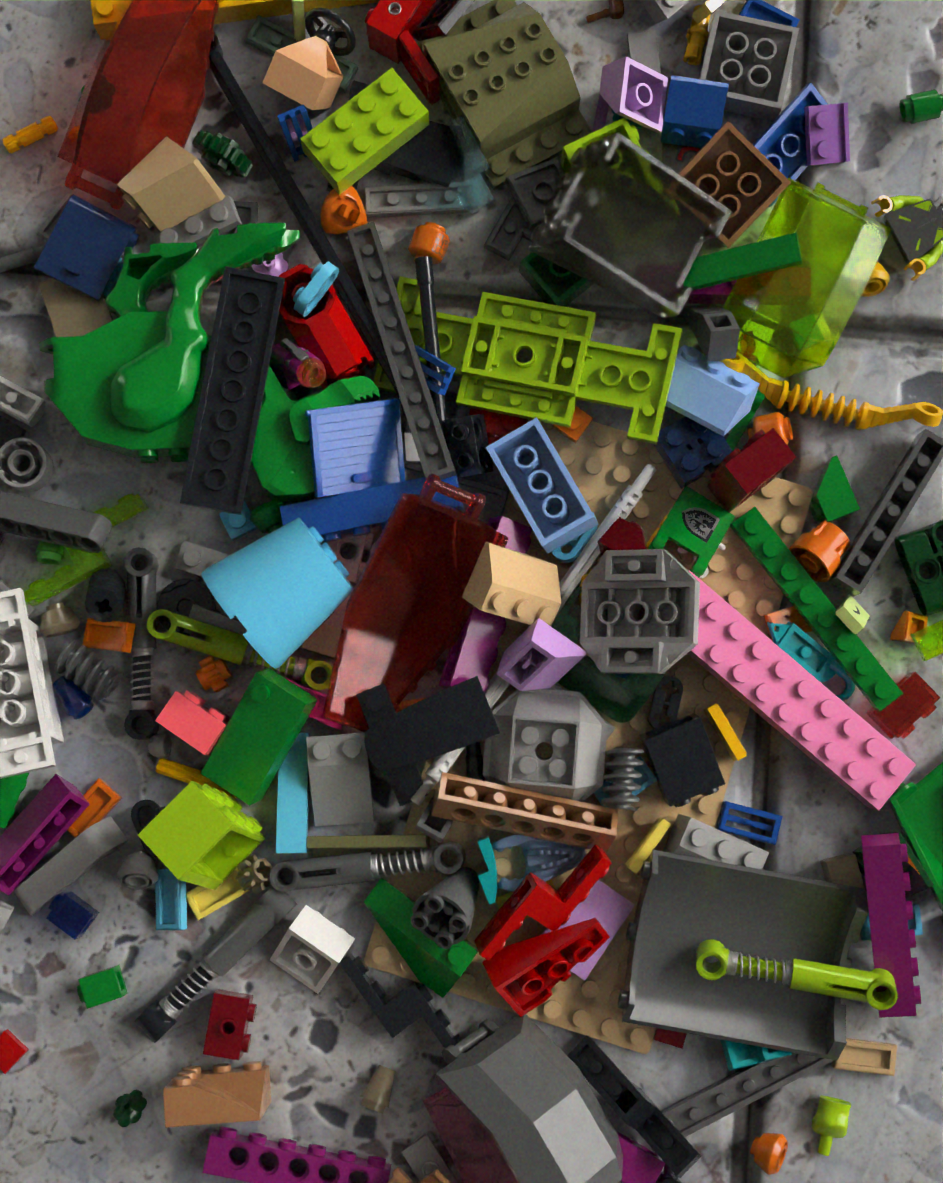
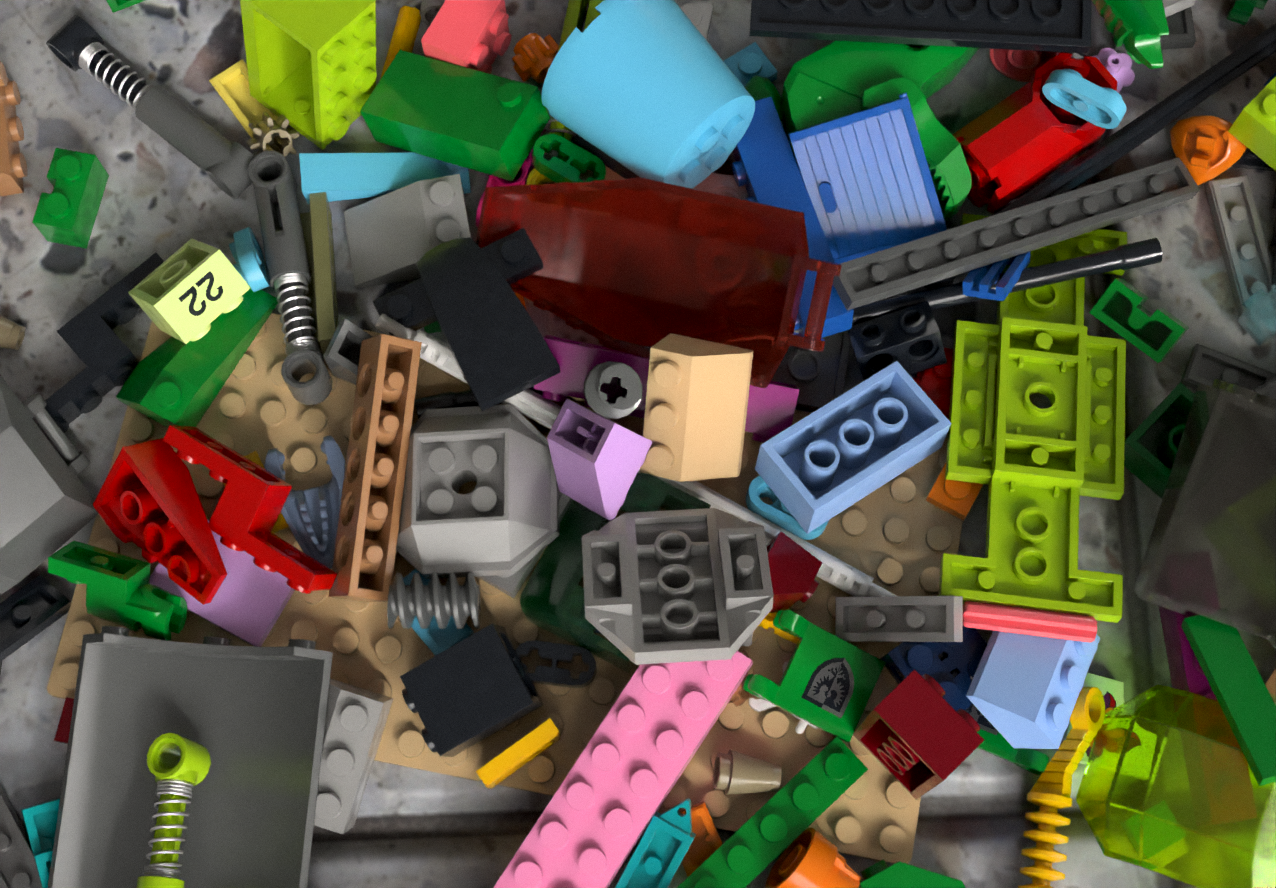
camera: 85 degrees right, 10 degrees down
(170, 902) = (219, 46): medium azure tile -> none
(229, 1024) = (74, 126): dark red brick -> none
(279, 1021) = (73, 205): none -> green brick
(296, 366) = (973, 91): plate -> none
(312, 949) = (174, 214): white slope -> none
(316, 661) = (569, 163): none -> green beam
(344, 896) = (249, 259): none -> medium azure plate
(377, 937) = (190, 291): none -> yellowish green brick
(429, 241) = (1183, 268): orange head -> none
(448, 908) = (235, 375): dark grey cone -> none
(466, 285) = (1123, 313): none -> green brick
(488, 876) = (294, 432): teal slope -> none
(498, 640) = (620, 405): none -> dark grey piece
(588, 997) = (120, 589): none -> green plate
(647, 844) = (345, 655): light yellow tile -> none
(664, 471) = (900, 619): none -> light grey plate
(678, 388) = (1029, 621): none -> coral axle
(714, 330) = (1125, 672): dark grey slope -> none
(724, 816) = (407, 816): blue tile -> none
(750, 588) = (744, 774): none -> dark tan cone
(772, 420) = (987, 786): orange head -> none

